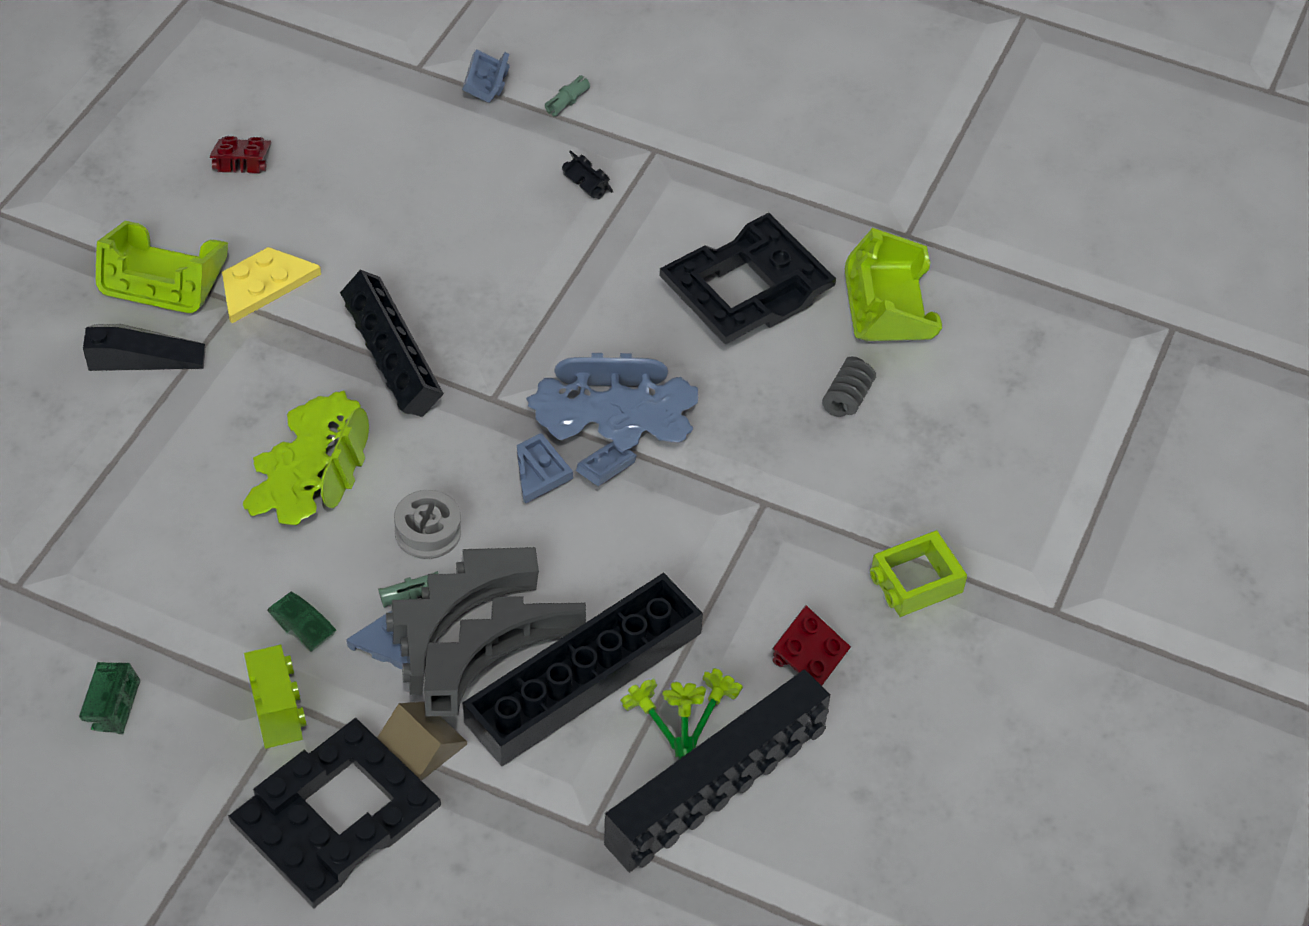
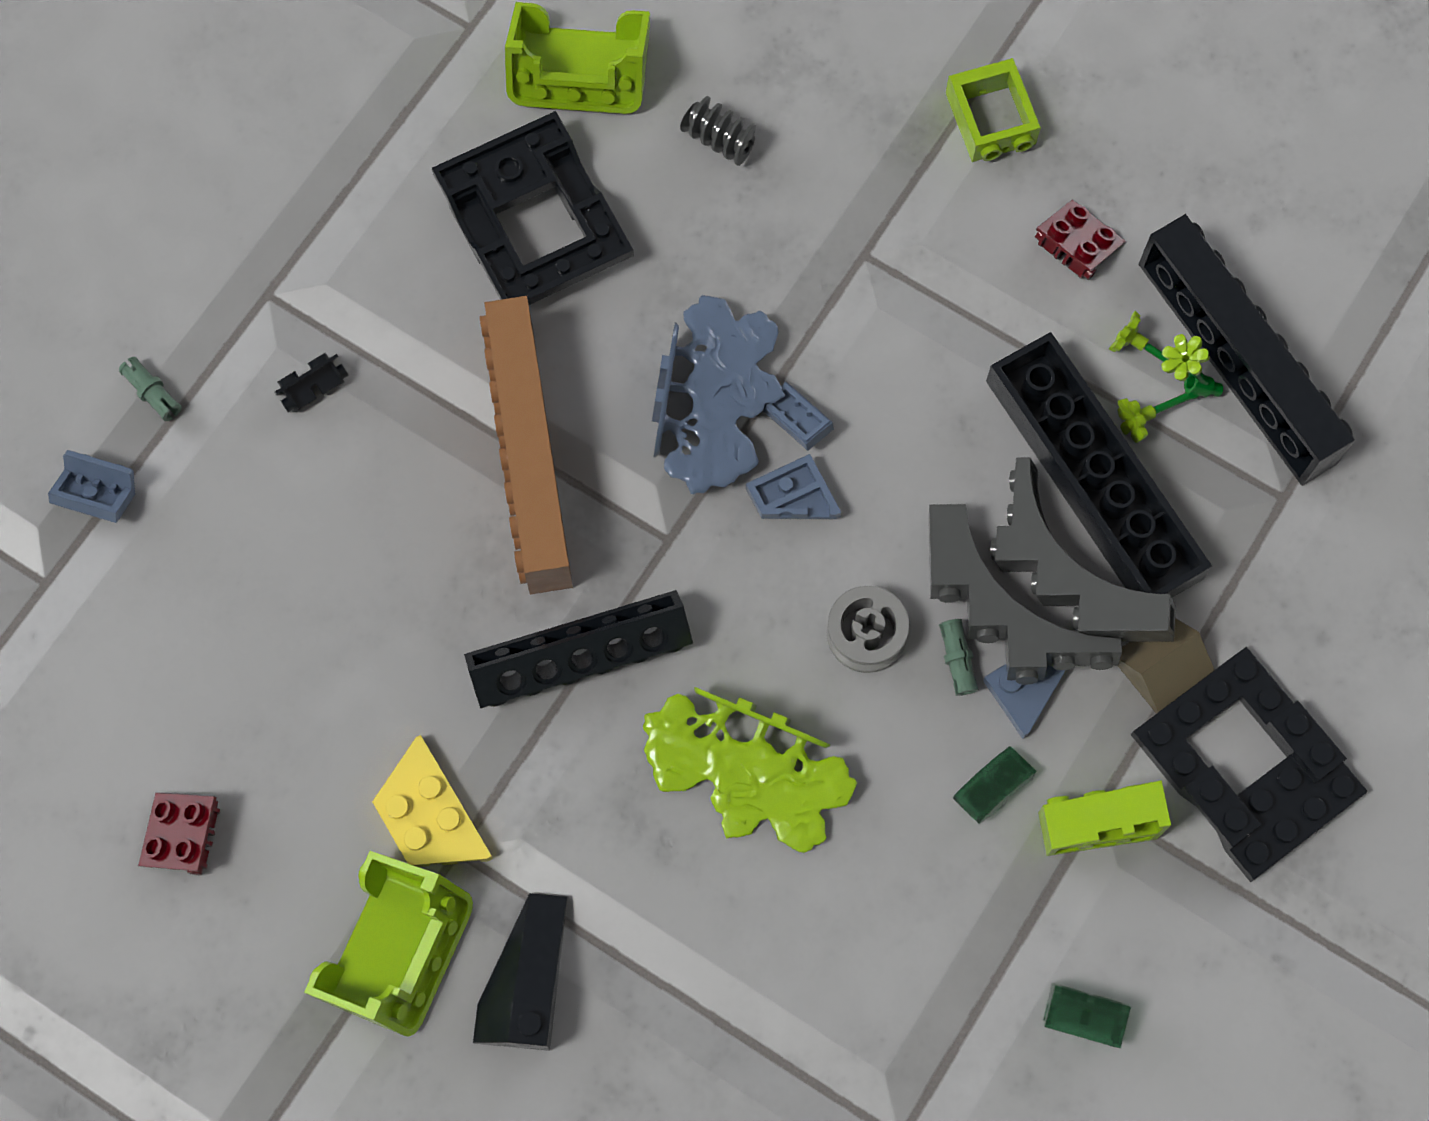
camera: 80 degrees left, 20 degrees up
(549, 292) = (525, 446): none -> medium nougat brick

